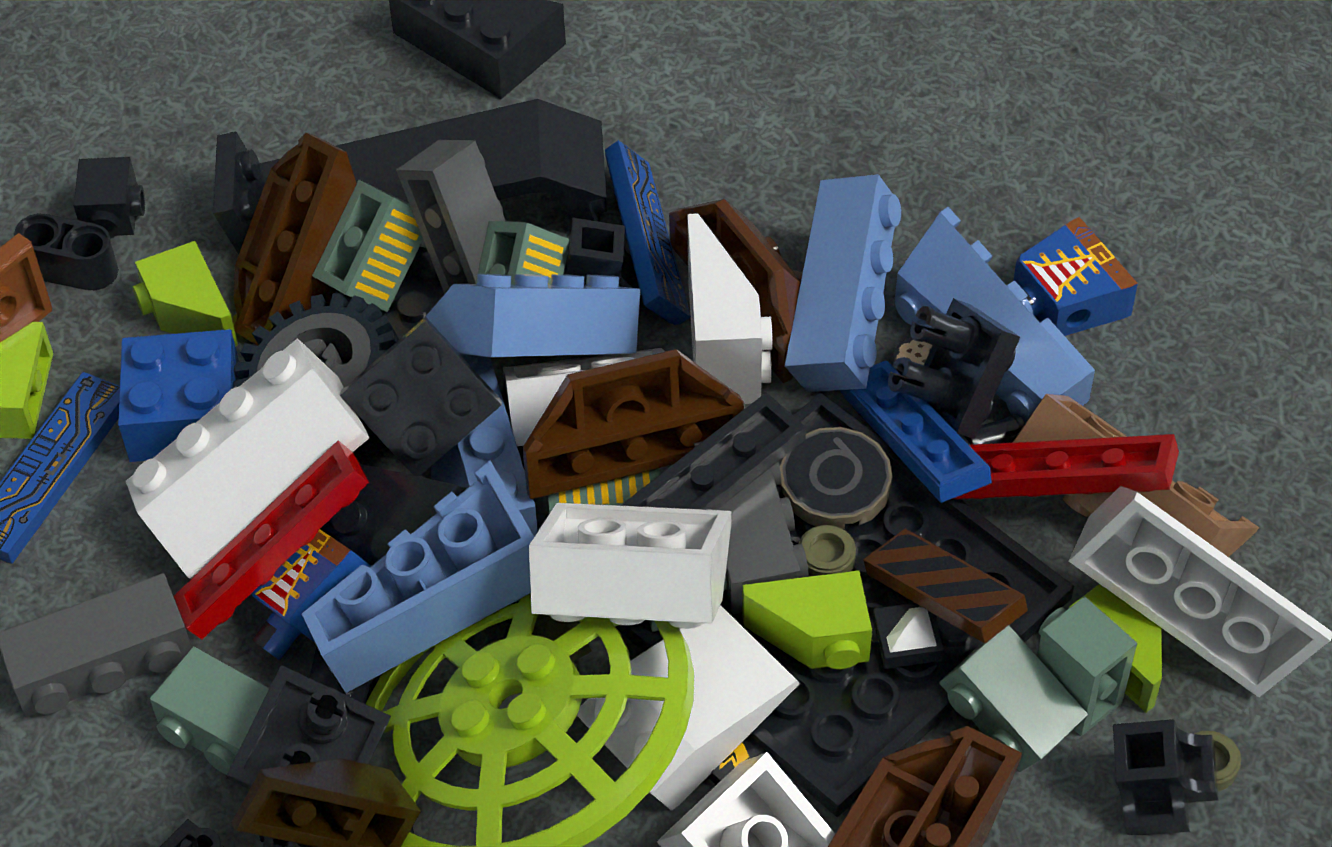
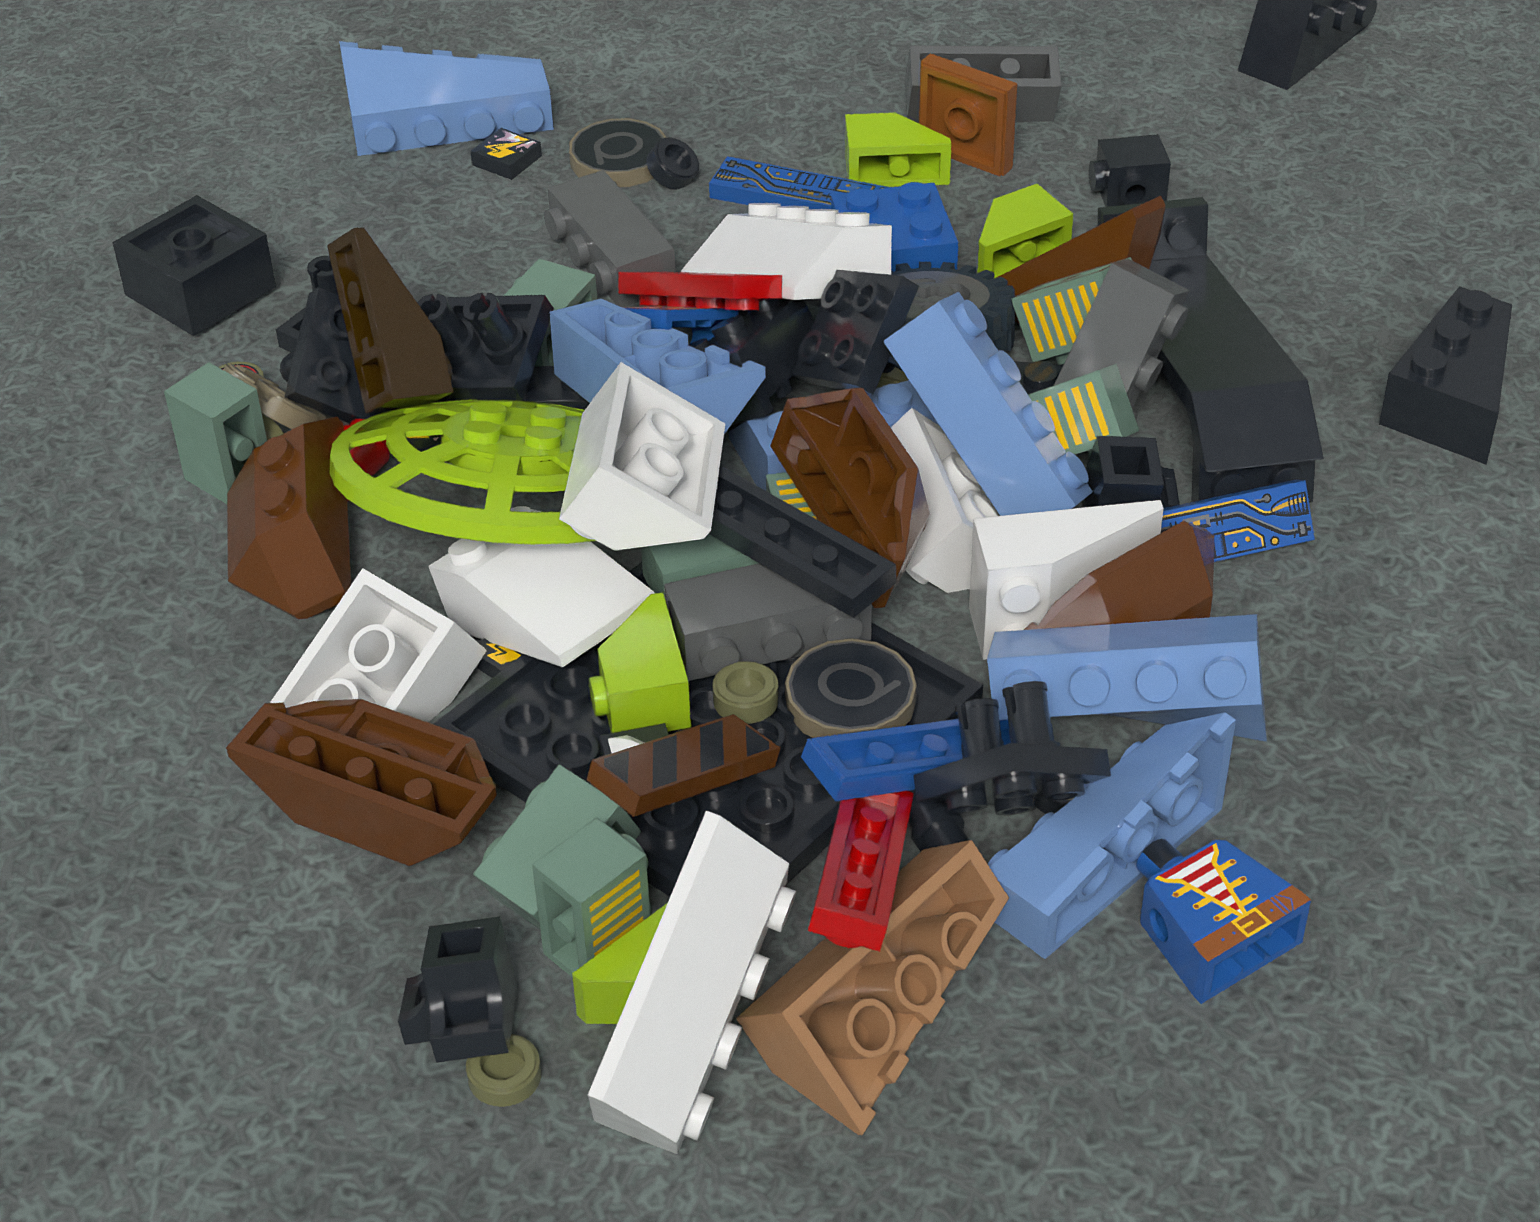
camera: 85 degrees right, 10 degrees down
(70, 251) = (1057, 155): black beam -> none

